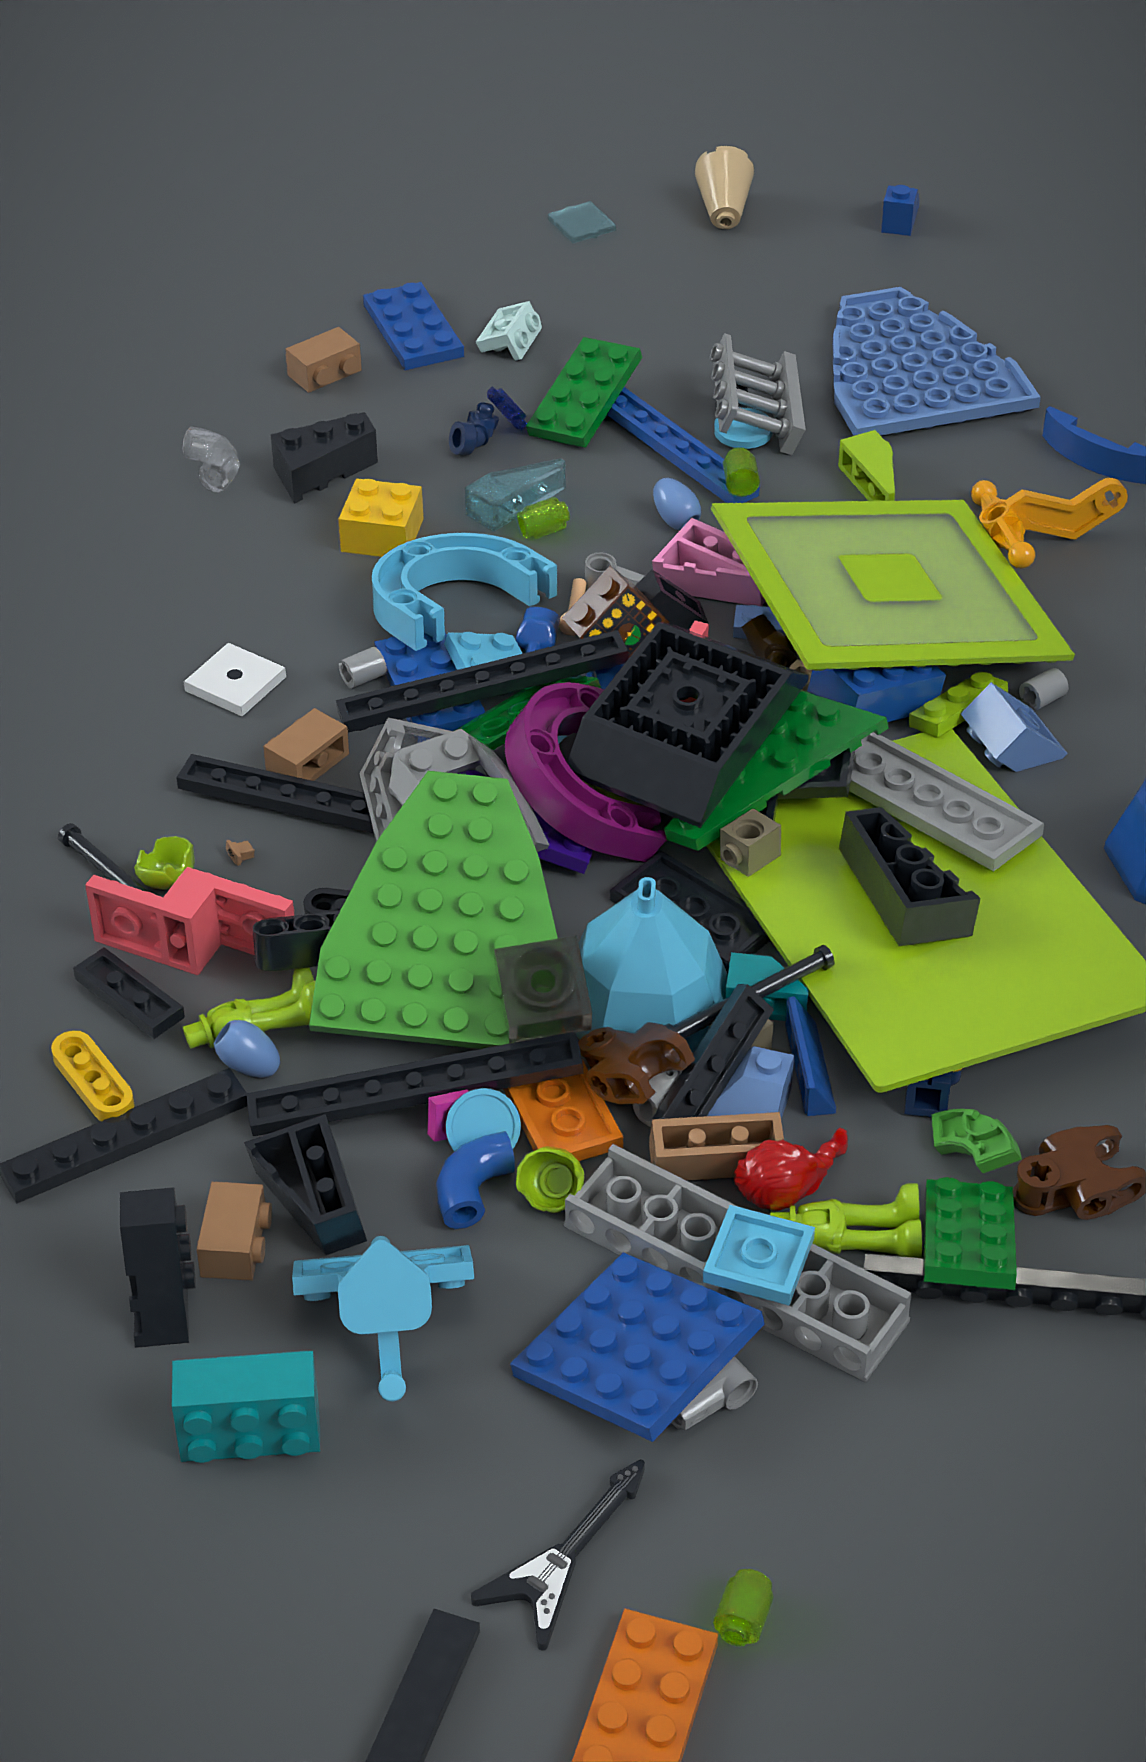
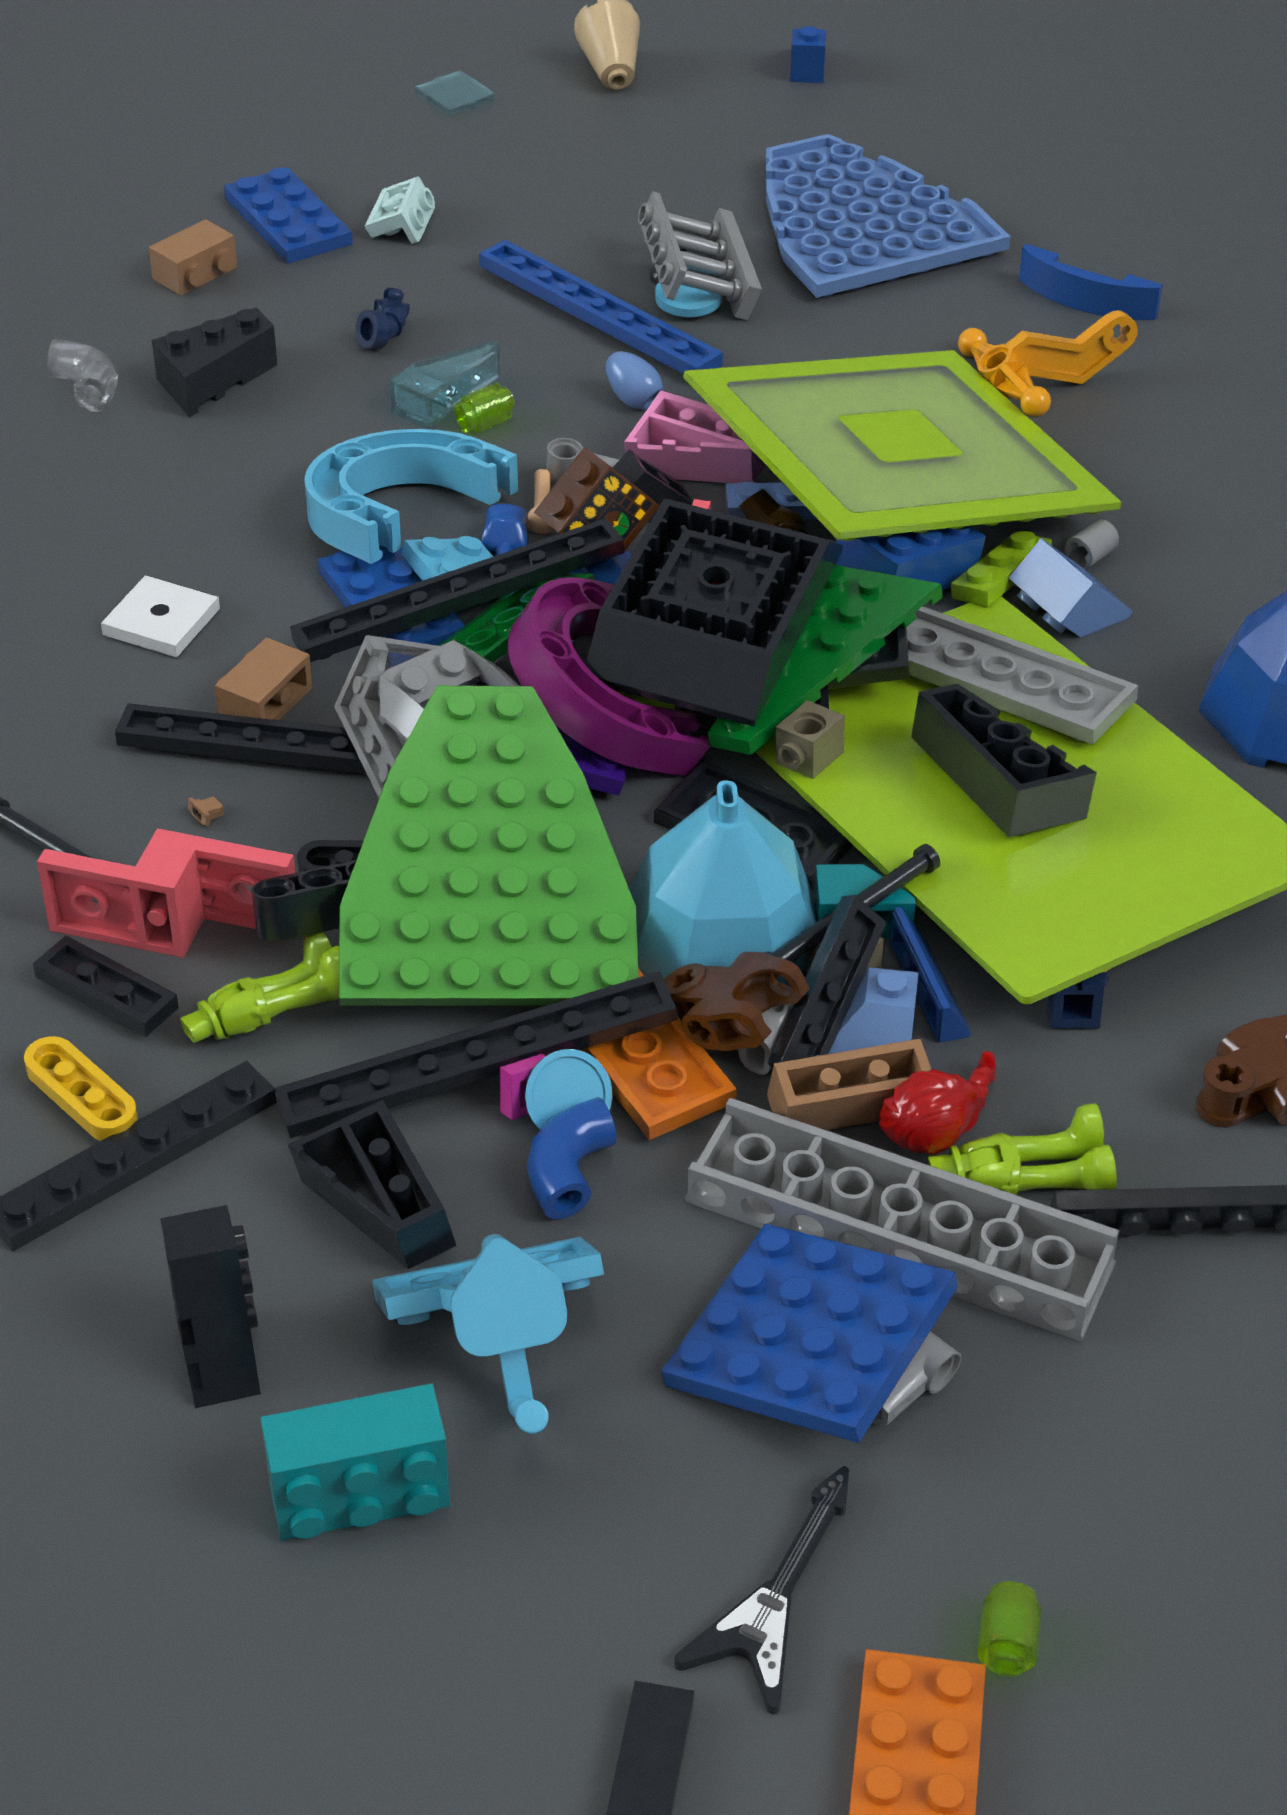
camera: 10 degrees left, 0 degrees up
(165, 863) = (122, 830): lime hair -> none
(233, 1230) = (291, 1252): medium nougat brick -> none
(247, 1049) = (265, 1036): medium blue animal -> none
(362, 667) = (310, 589): light grey piece -> none
(380, 517) = (296, 421): yellow brick -> none
(507, 407) = (418, 292): clear blue gear -> none
(543, 964) = (620, 896): clear smoke piece -> none
(549, 1177) = (662, 1147): lime hair -> none
(584, 392) = (502, 269): green plate -> none
(741, 472) = (702, 339): clear neon green brick -> none
(759, 1255) = (935, 1206): medium azure plate -> none
(868, 465) = (839, 322): lime slope -> none
(969, 1234) = (1169, 1155): green plate -> none
(976, 1135) = (1143, 1042): bright green tile -> none

